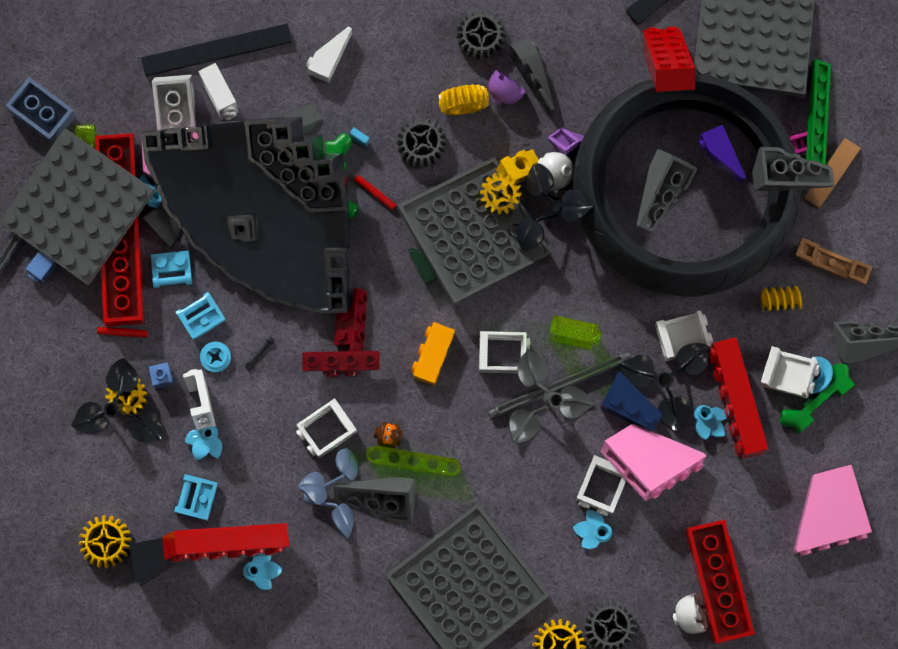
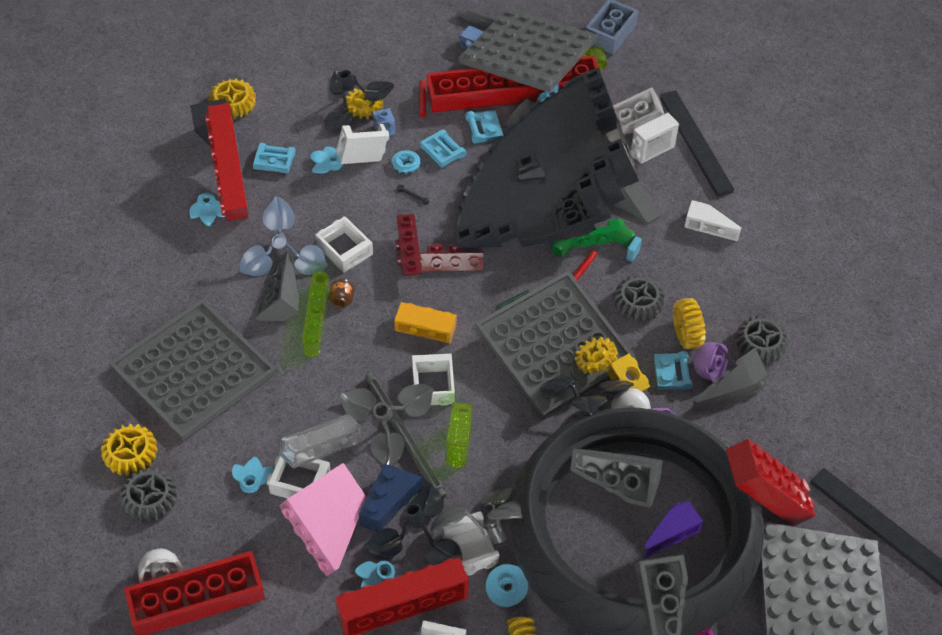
camera: 85 degrees right, 25 degrees down
(507, 131) = (666, 371): none -> medium azure plate
(572, 462) = (320, 440): none -> clear brick
(680, 296) = (493, 526): none -> dark grey plant
(736, 307) = (501, 577): none -> medium azure dish

